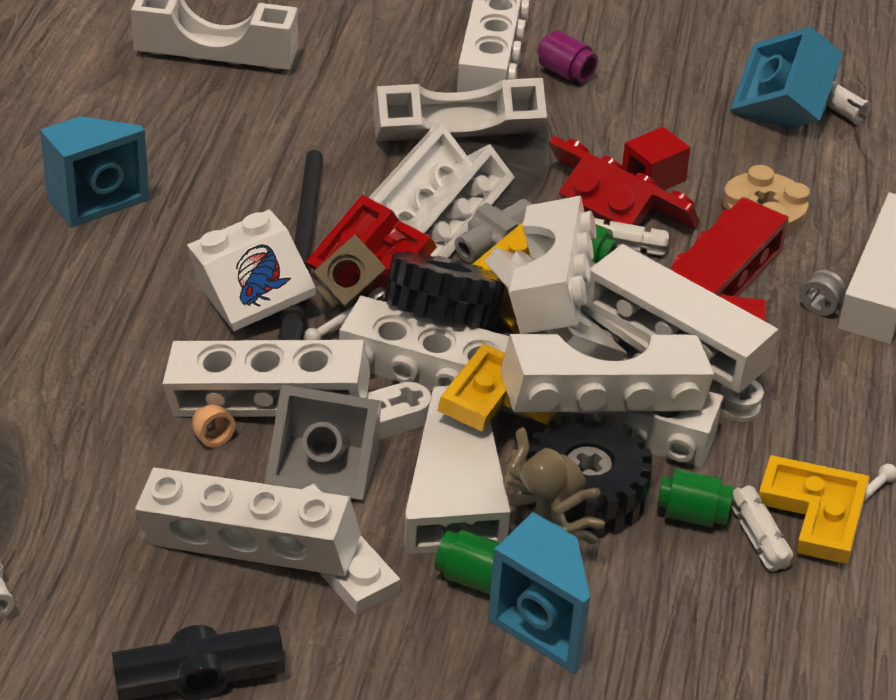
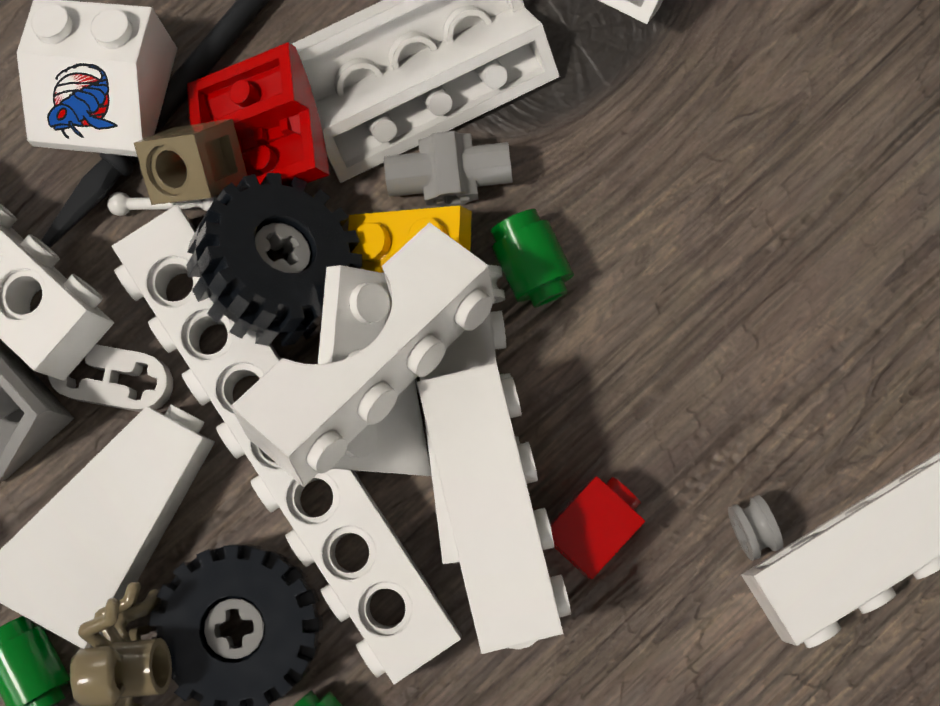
camera: 40 degrees right, 40 degrees up
(480, 391) = (199, 460): yellow plate -> none
(553, 377) = (388, 596): white arch -> none
(615, 193) = (646, 189): red bracket -> none
(637, 238) = (604, 271): white axle -> none
(658, 156) = (744, 171): red brick -> none
(734, 248) = (662, 404): red brick -> none
(773, 190) = (849, 290): tan plate -> none

